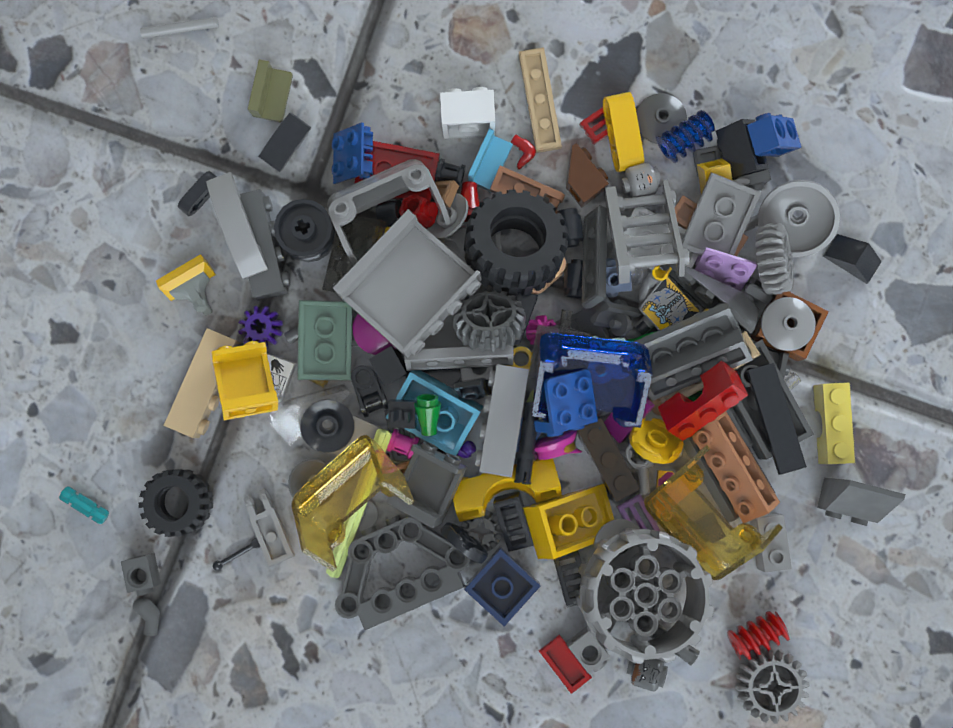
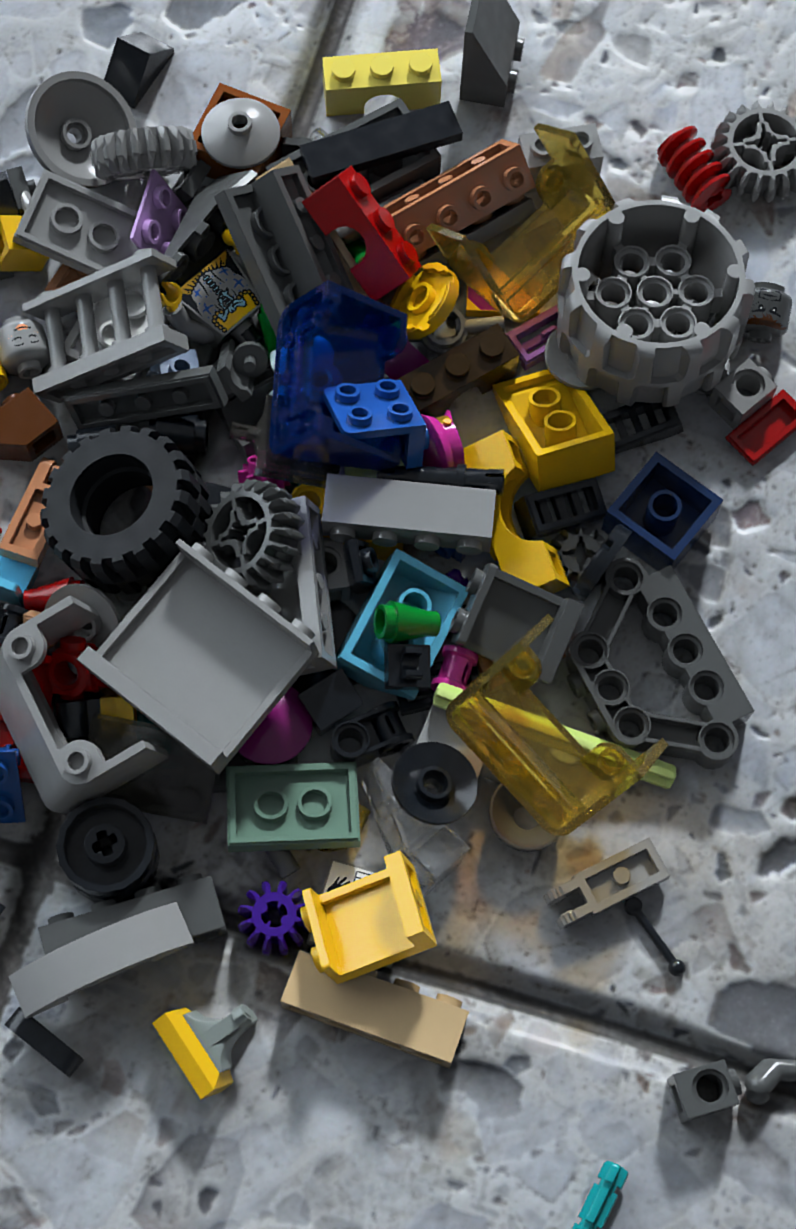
camera: 100 degrees left, 15 degrees down
(155, 508) = (606, 1008): black tyre -> none

